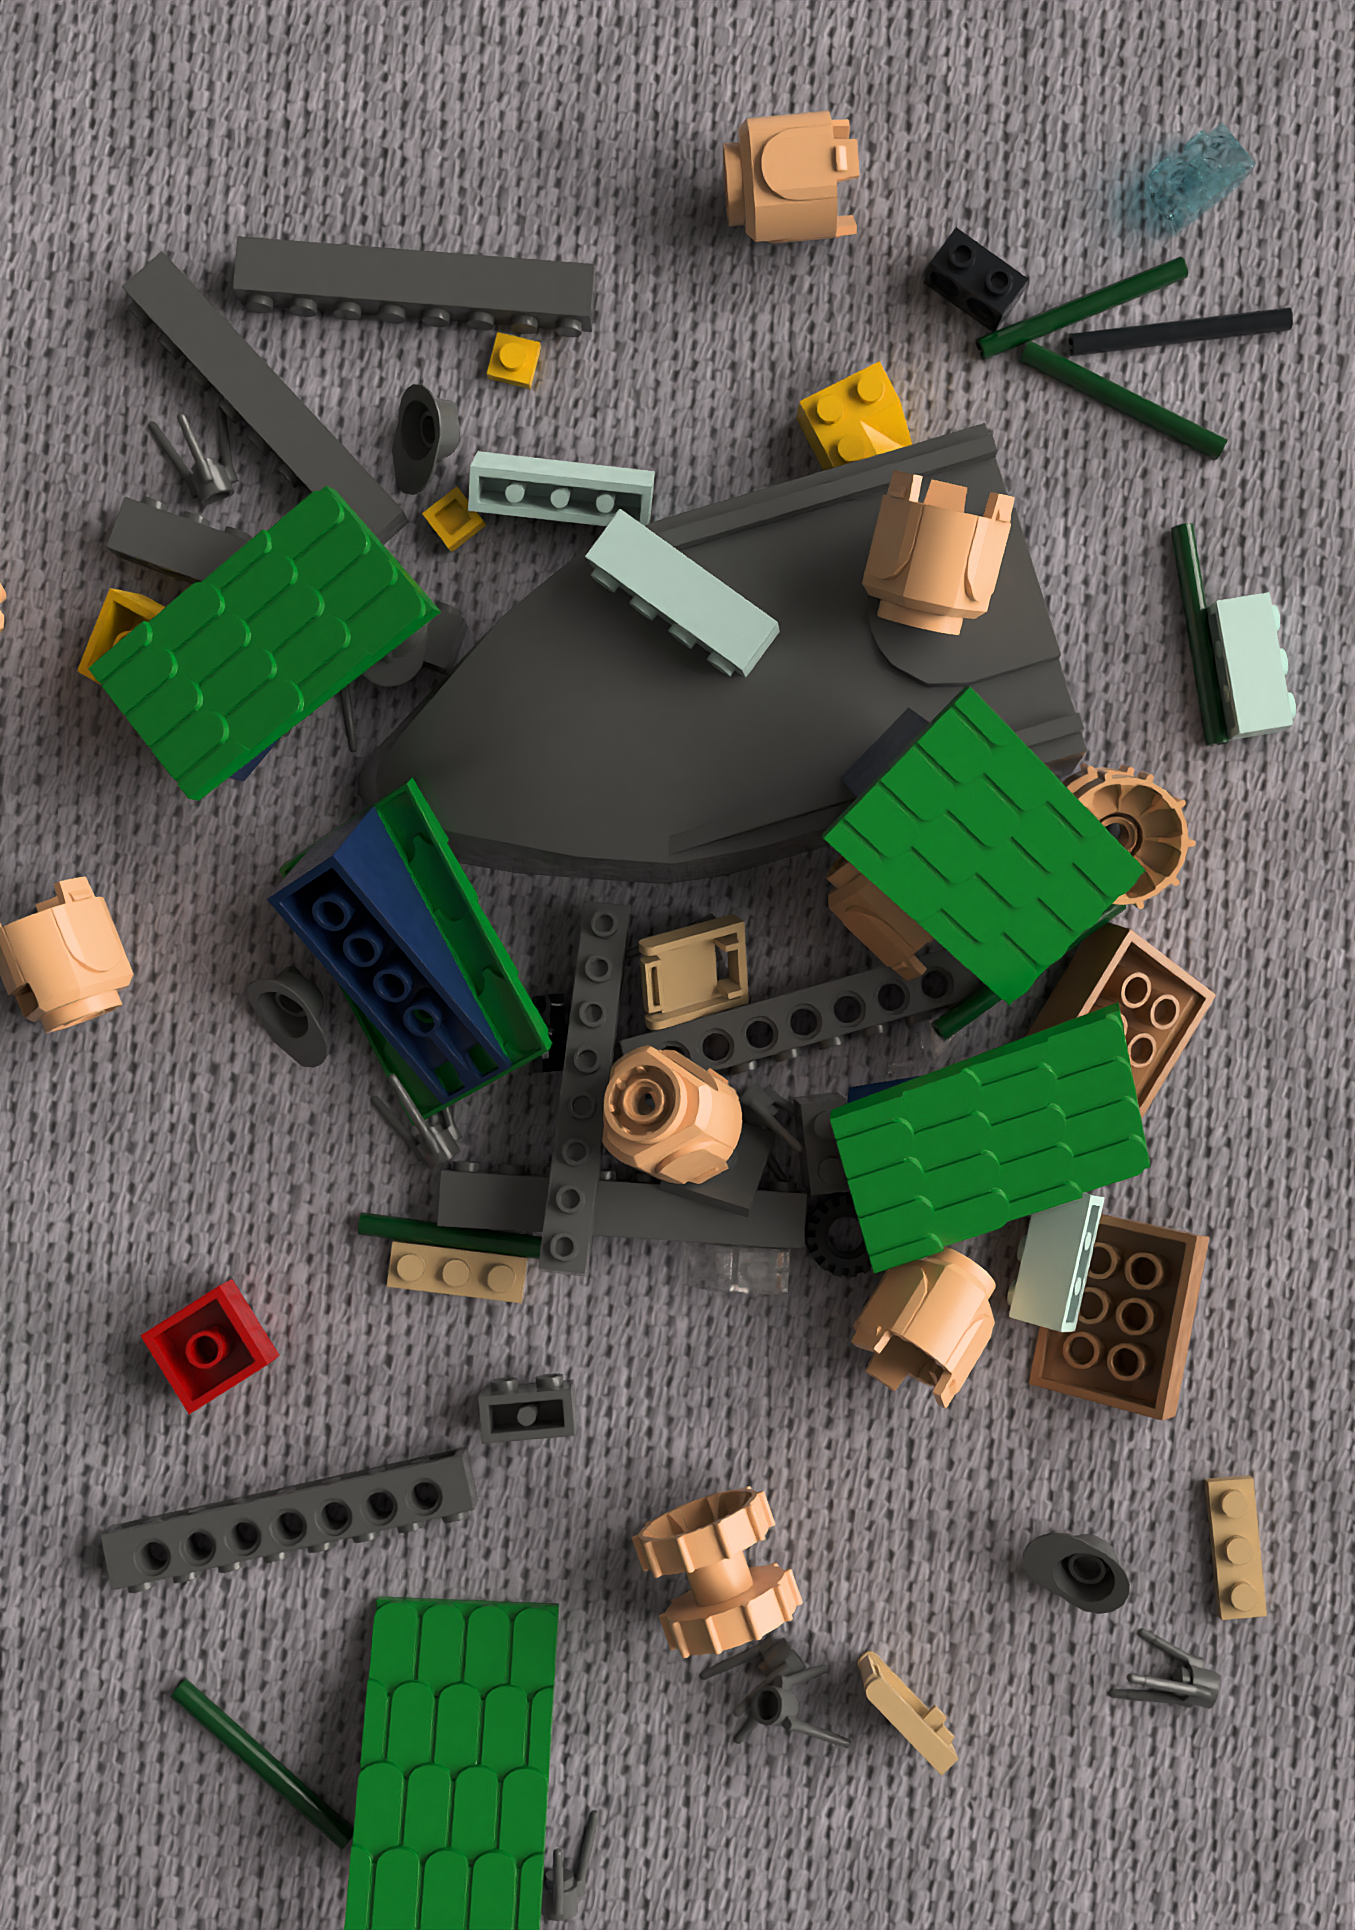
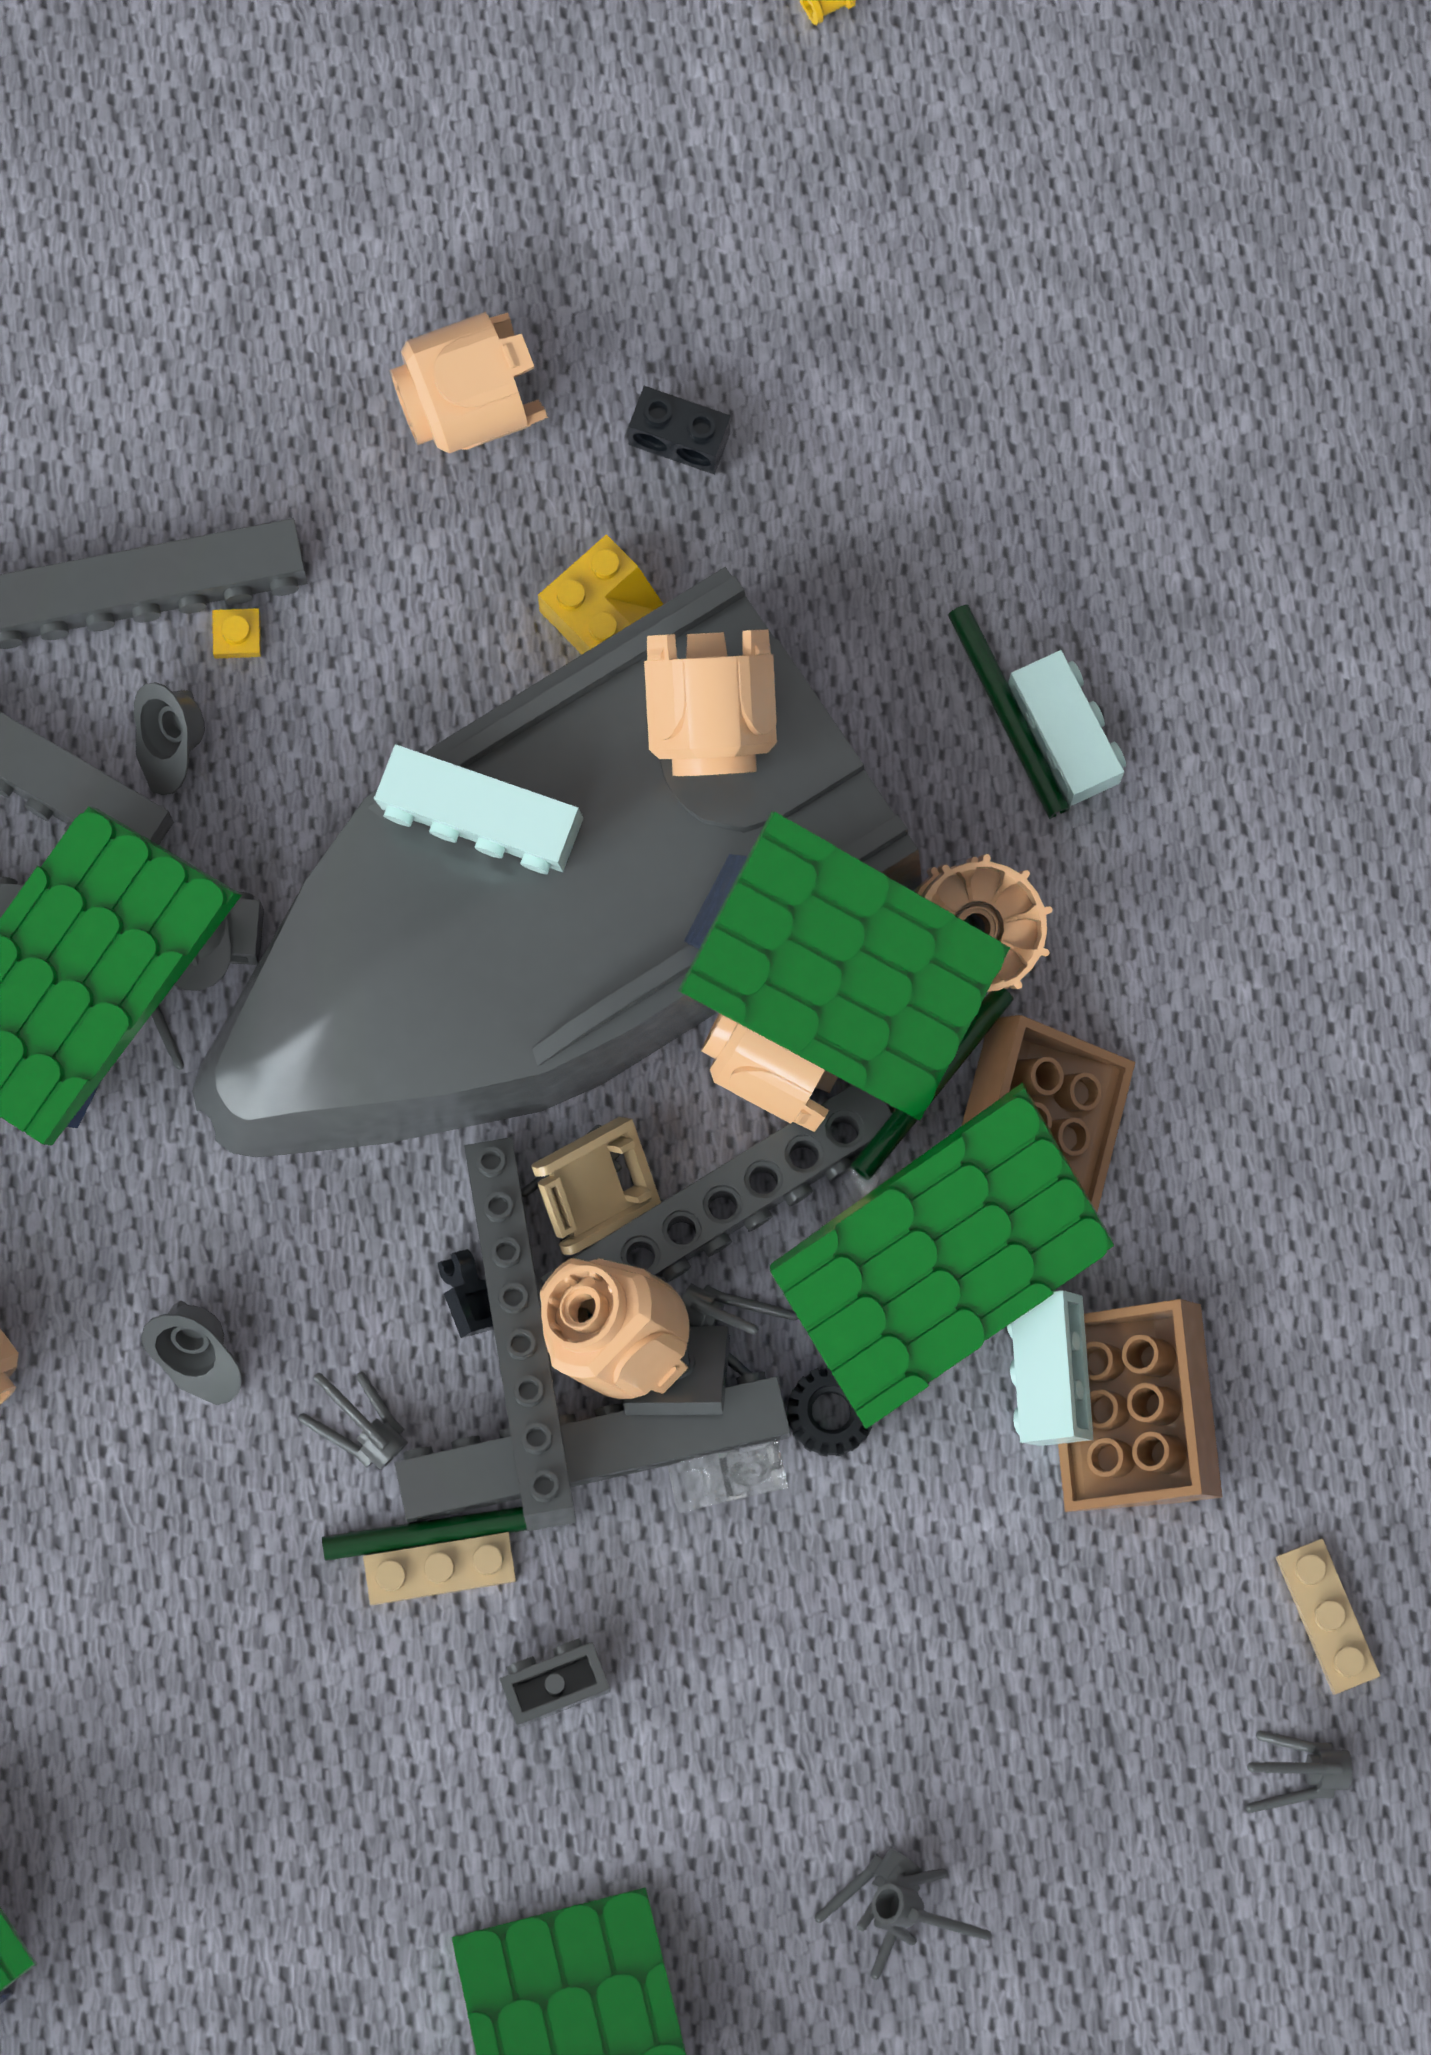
camera: 20 degrees left, 10 degrees down
(134, 1566) = (174, 1952): dark grey brick -> none
(210, 1346) = (203, 1715): red brick -> none
(412, 951) = (304, 1247): dark blue piece -> none
(453, 520) = (220, 806): yellow plate -> none
(558, 489) = (319, 747): light aqua brick -> none
(726, 1597) = (796, 1783): light nougat piece -> none
(820, 1158) = (780, 1332): dark grey brick -> none
(907, 1713) = (1065, 1892): tan container -> none
(927, 1323) = (937, 1468): light nougat piece -> none
(1079, 1570) = (1168, 1682): dark grey piece -> none
(1082, 308) = (793, 426): dark green piece -> none
(1123, 400) = (862, 504): dark green piece -> none
(1181, 331) = (899, 422): black piece -> none
(1199, 180) = (877, 277): clear light blue brick -> none

